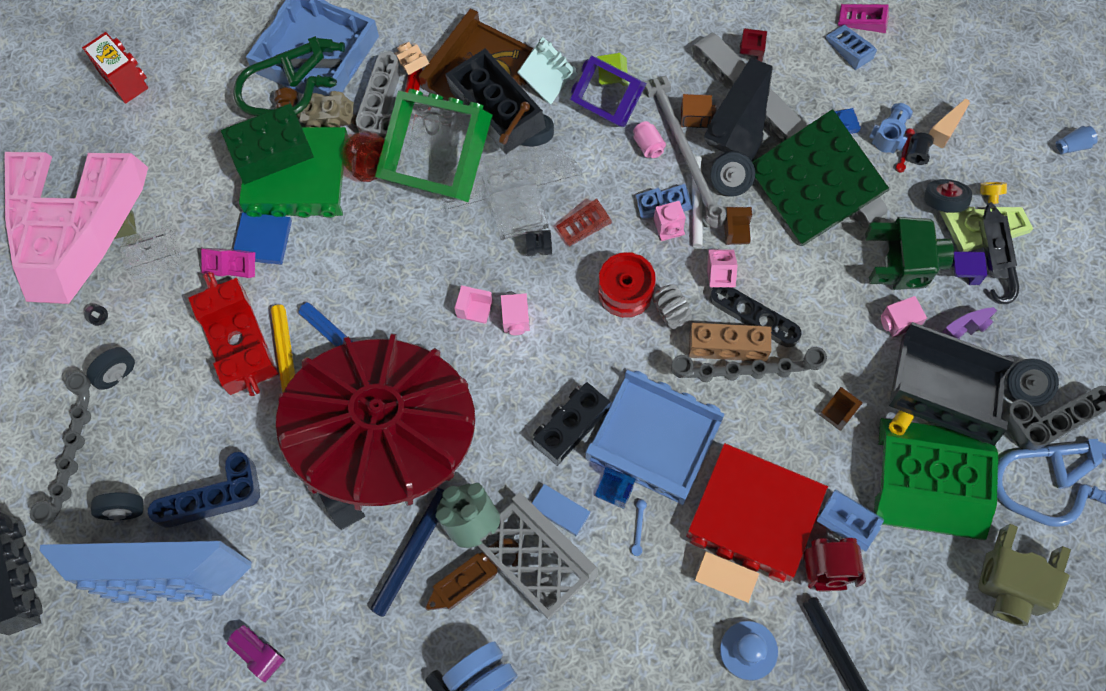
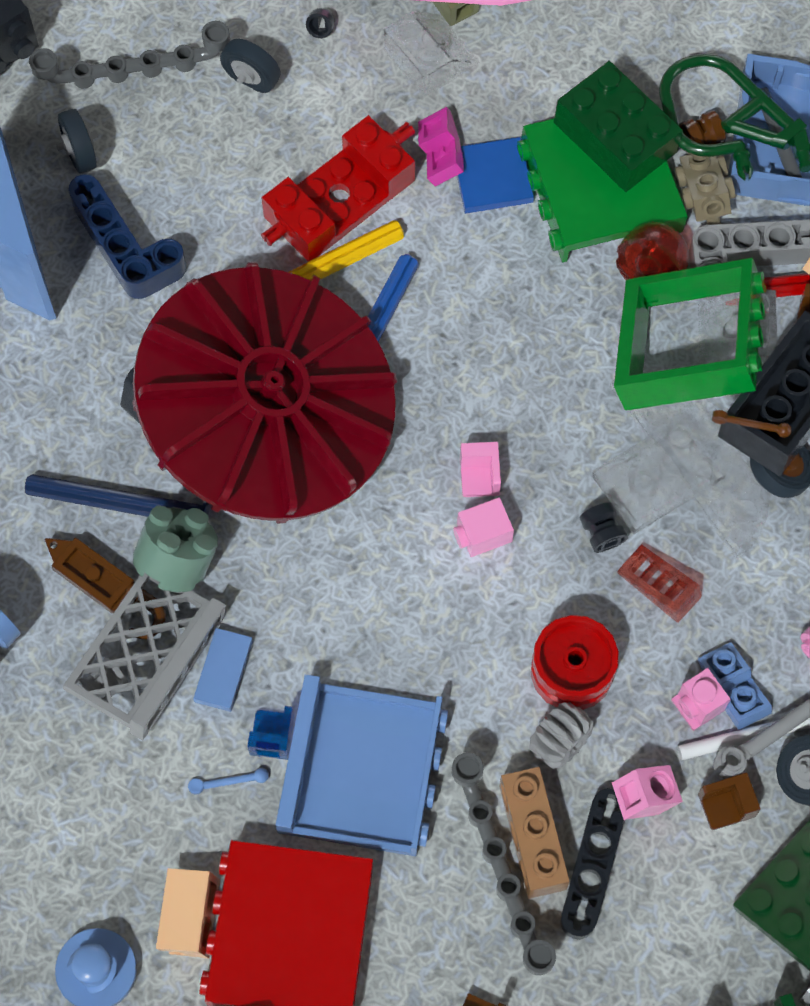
camera: 70 degrees right, 0 degrees up
(571, 436) = (351, 665): black brick -> none

